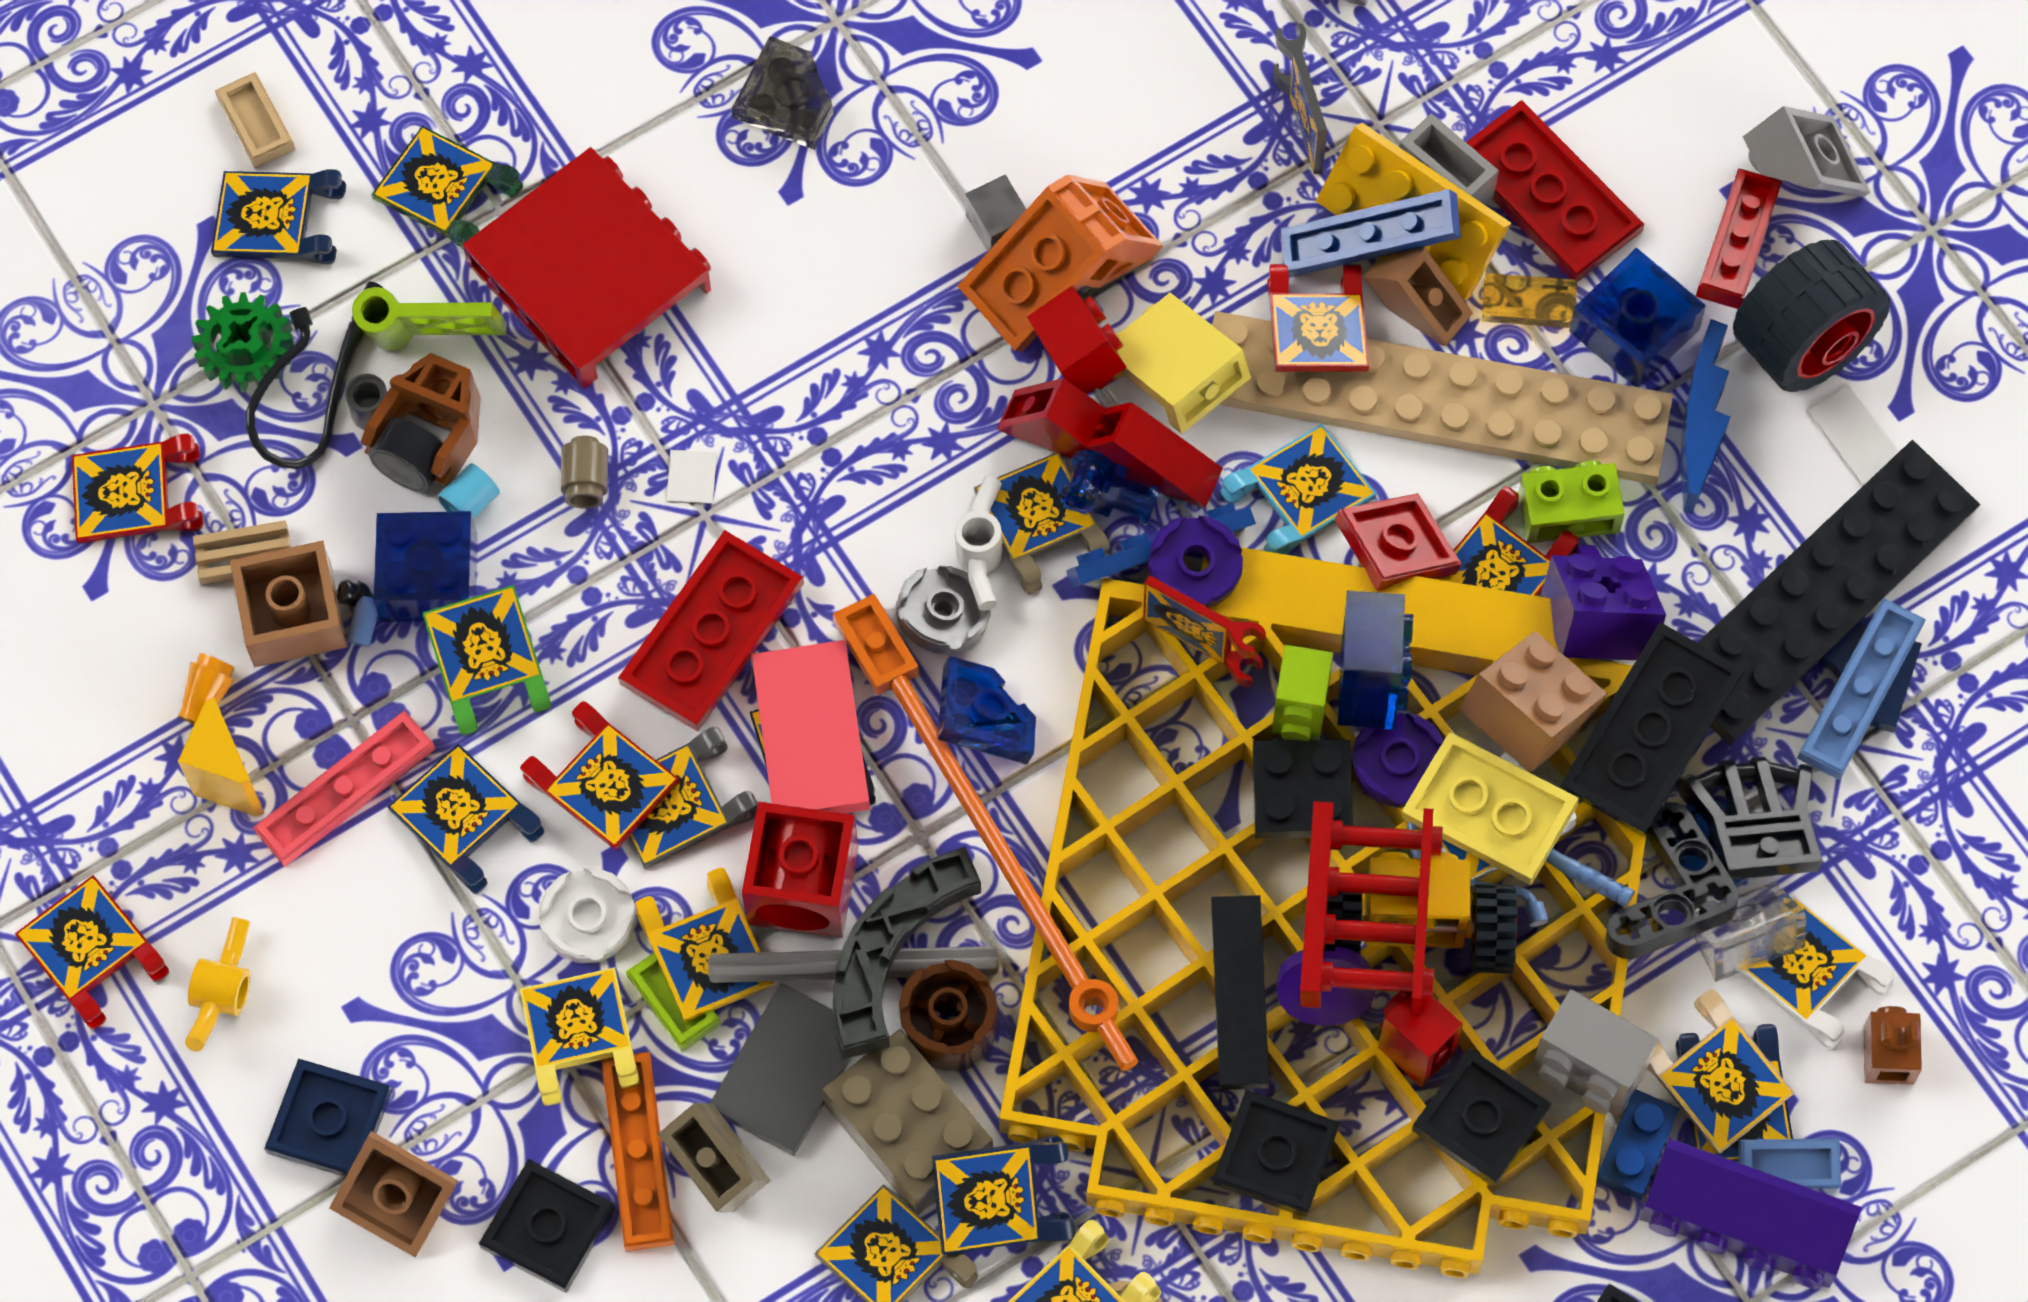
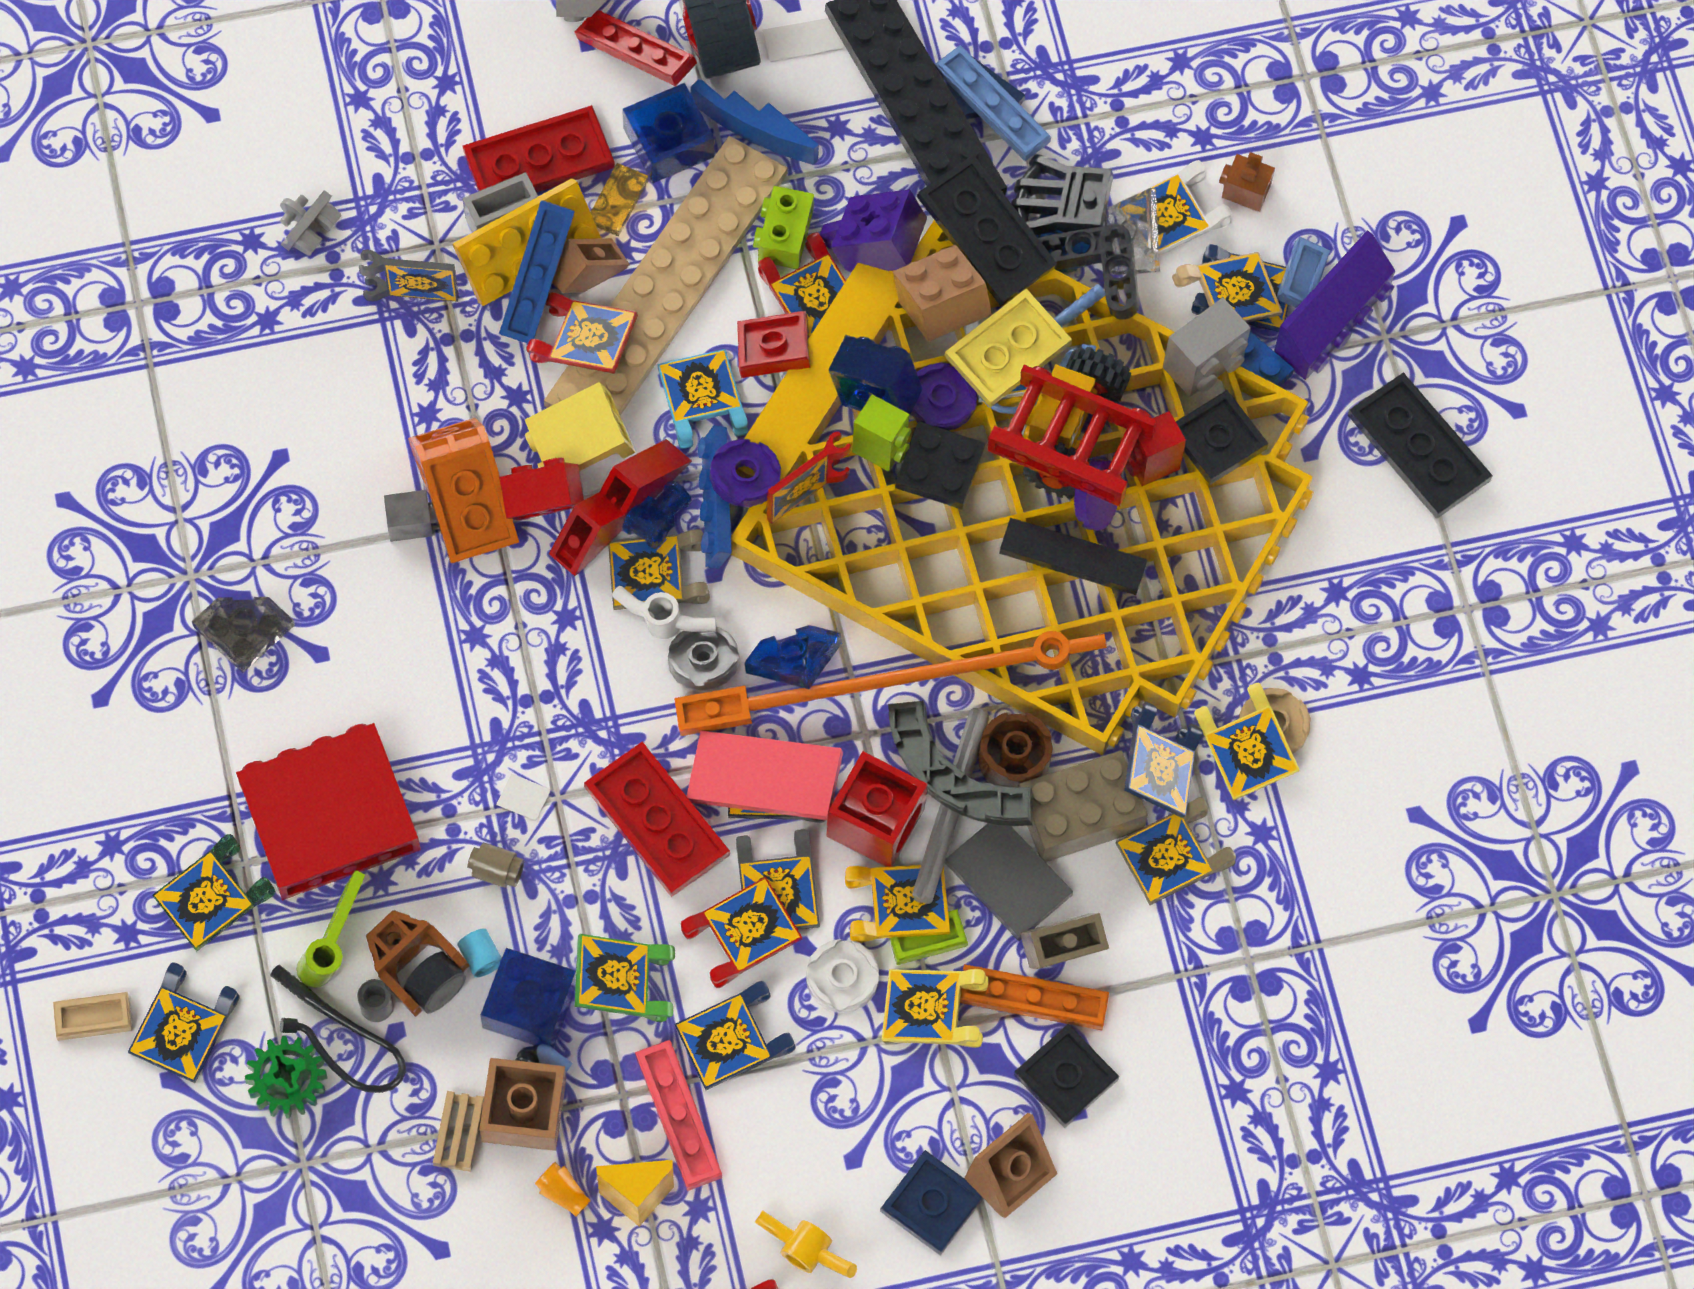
camera: 75 degrees left, 0 degrees up
(127, 490) = (372, 1203): flag -> none
(1276, 1153) = (1195, 574): black tile -> none

